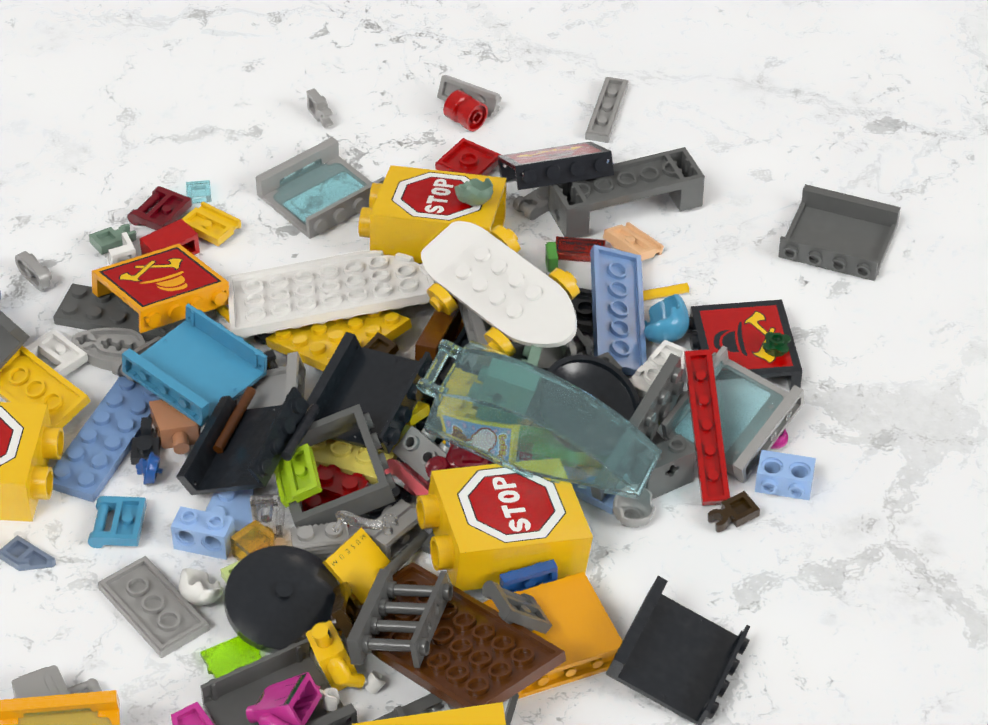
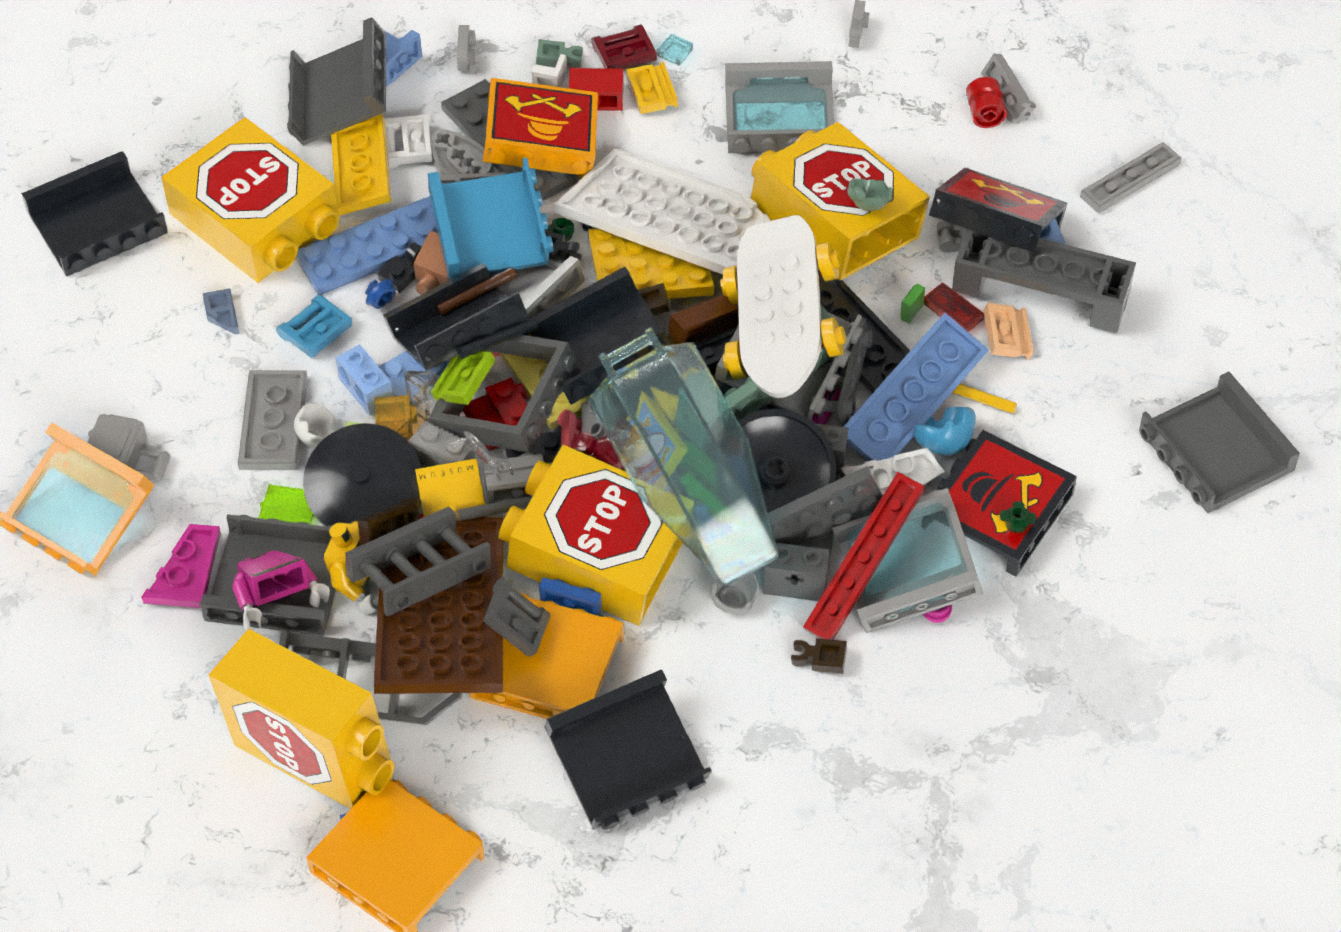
camera: 40 degrees right, 10 degrees up
(468, 158) = (938, 157): red plate -> none
(785, 475) = (907, 647): light blue brick -> none

